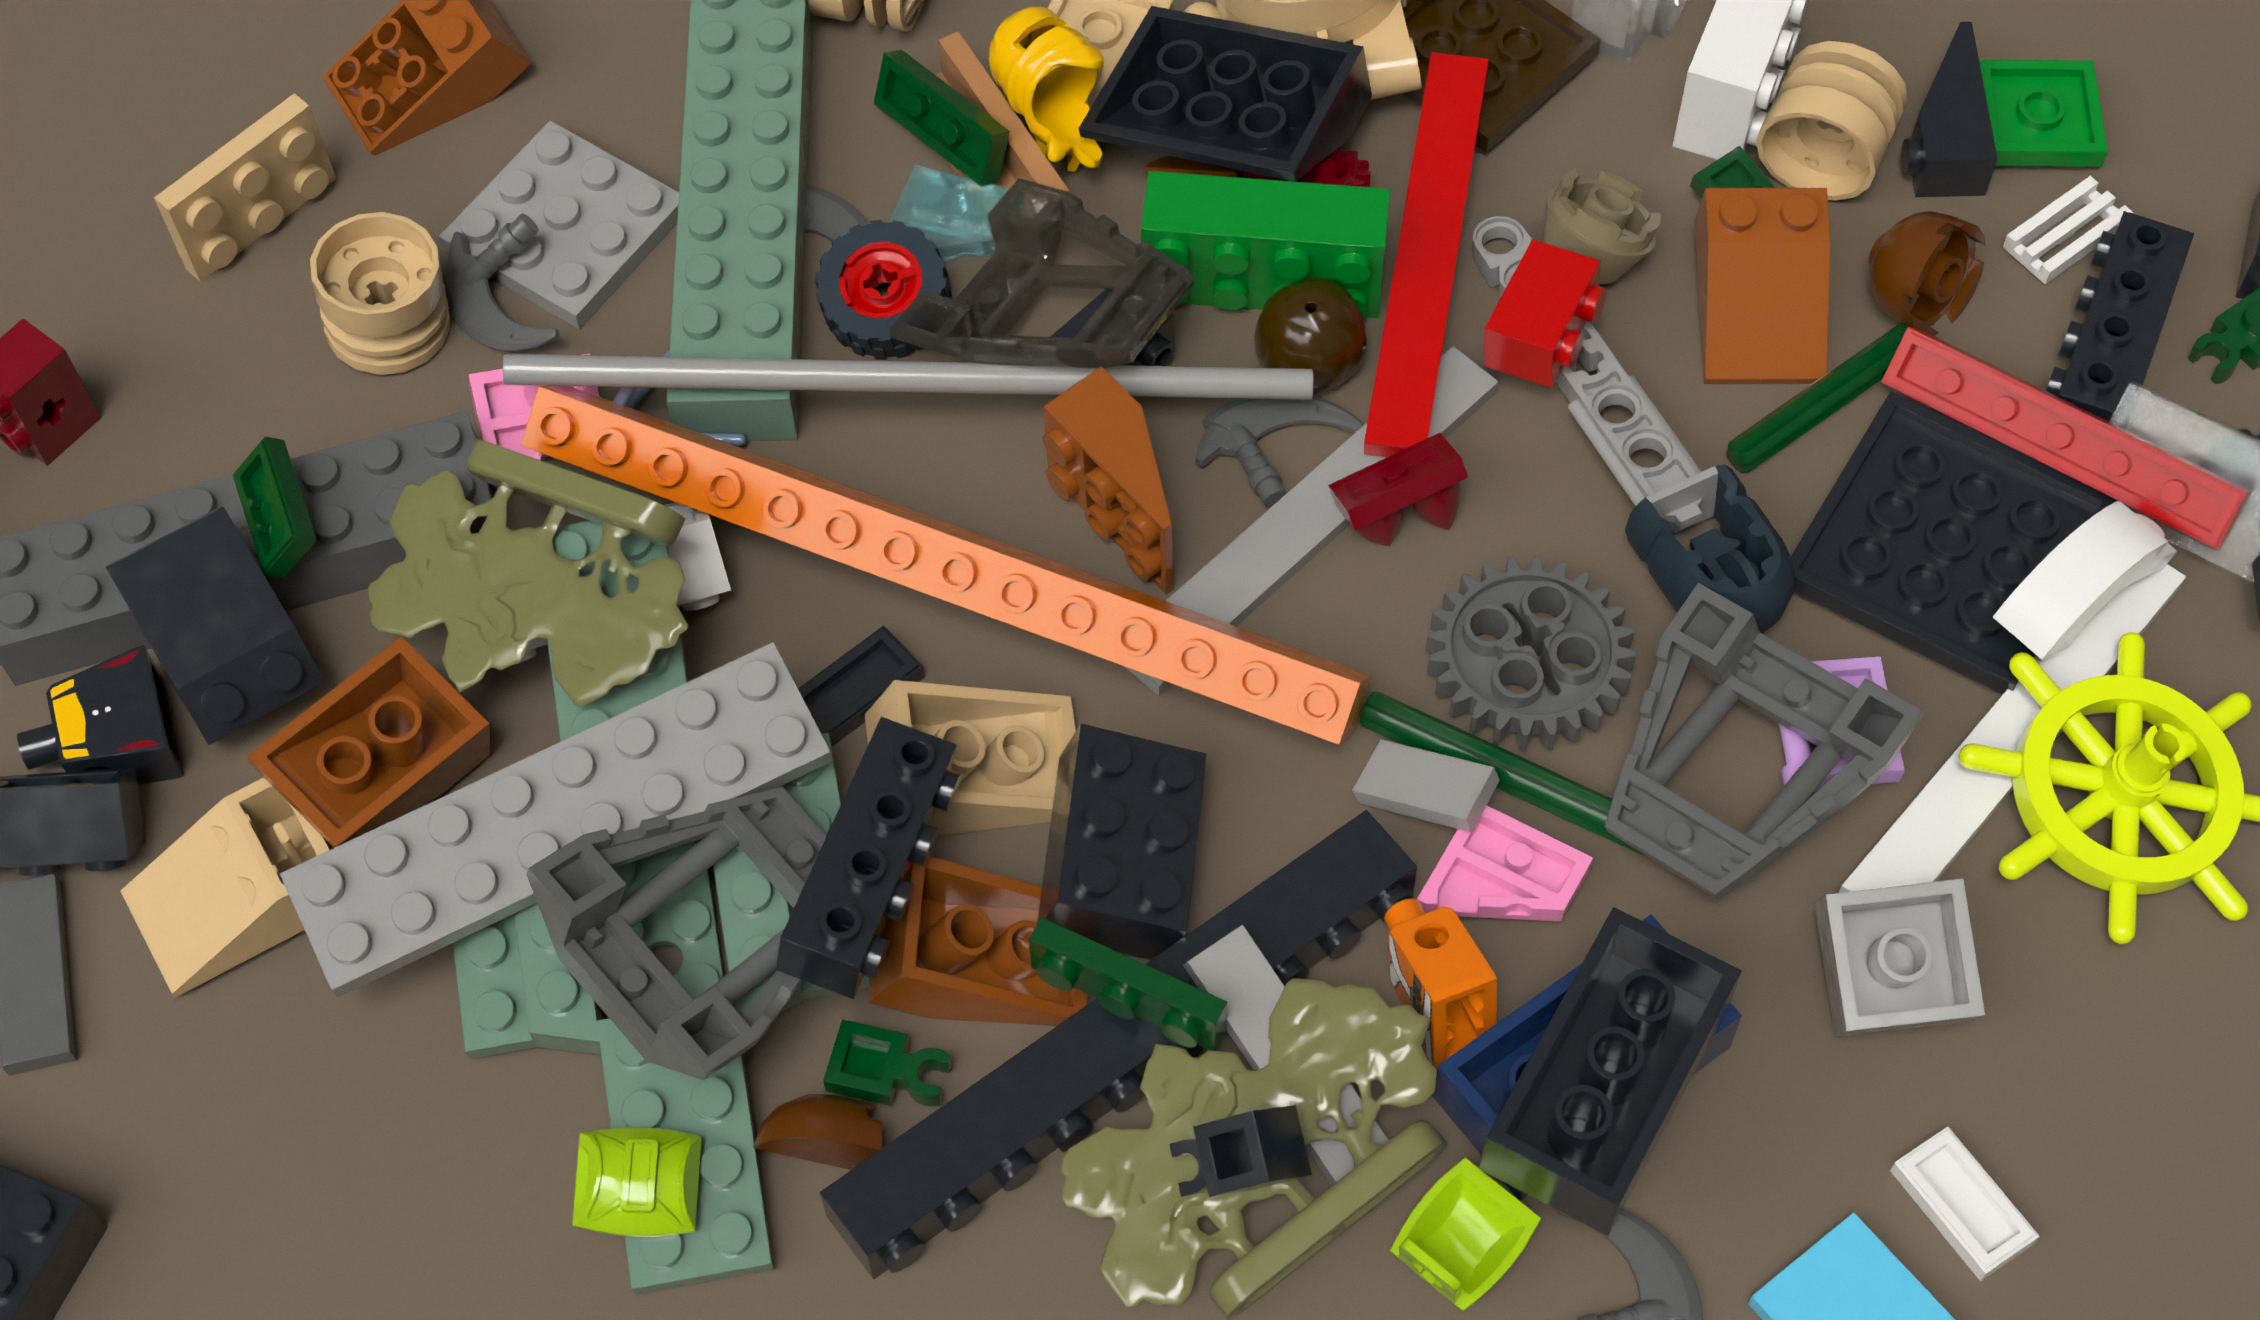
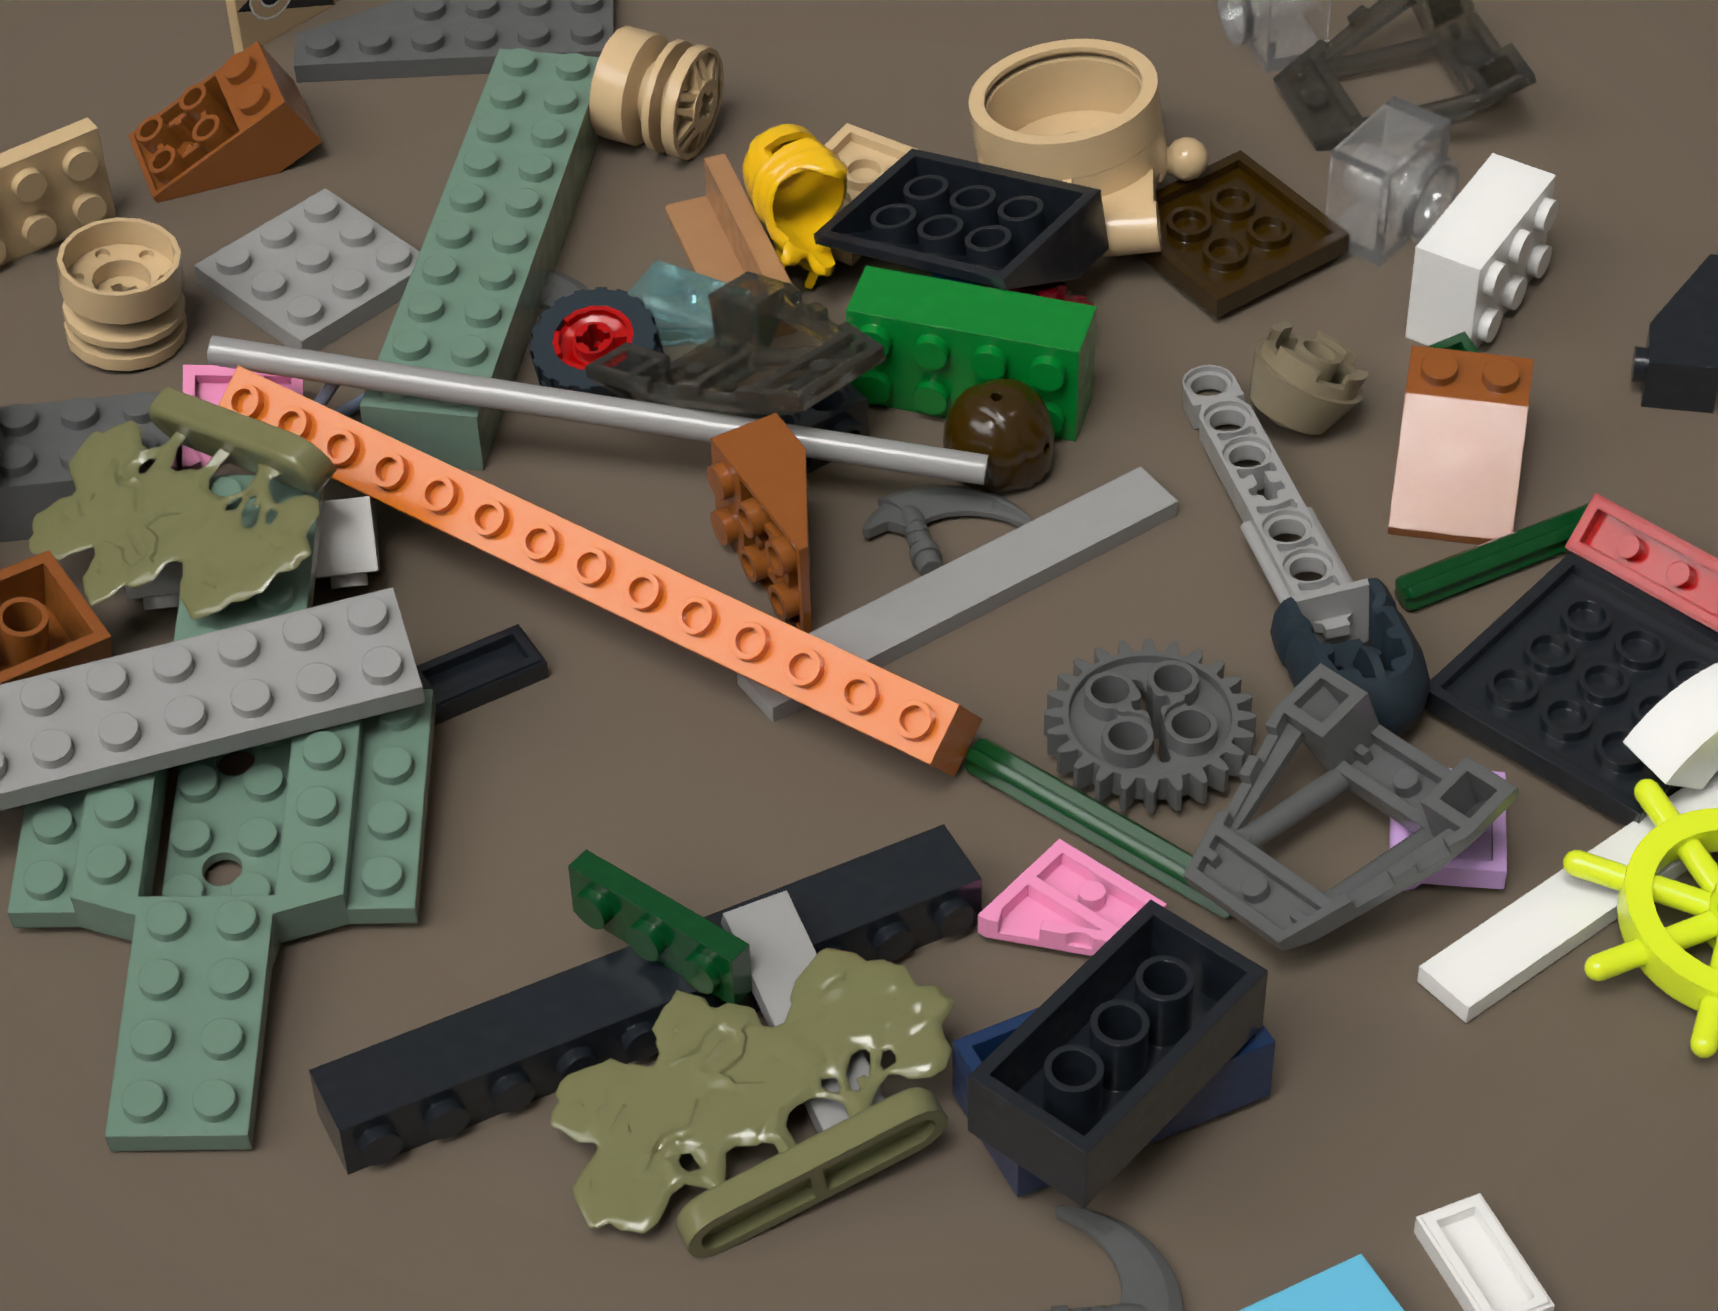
camera: 10 degrees right, 15 degrees down
(471, 297) = (208, 305): dark grey piece -> none
(596, 939) = (142, 777): dark grey windscreen -> none
(637, 1181) = (133, 1037): lime piece -> none
(822, 1130) = (326, 1024): reddish brown brick -> none
(866, 859) = (428, 774): black brick -> none
(875, 1061) = (402, 981): dark green plate -> none
(941, 117) = (691, 222): dark green plate -> none
(968, 951) = (507, 892): dark orange slope -> none
(1003, 748) = (570, 740): tan slope -> none
(1123, 841) = (698, 810): black brick -> none
(1245, 1152) = (734, 1080): black brick -> none
(1418, 475) = (1078, 559): dark red tile -> none
(1426, 255) = (1128, 389): red tile -> none
(1426, 785) = (1014, 821): light grey tile -> none
(1441, 976) = (982, 959): orange torso -> none
(1465, 1234) = (948, 1209): lime piece -> none
(1543, 314) = (1228, 437): red brick -> none
(1832, 119) = (1565, 314): tan wheel -> none
(1899, 958) = (1457, 1025): light grey brick -> none
(1926, 269) = (1632, 452): reddish brown cylinder -> none

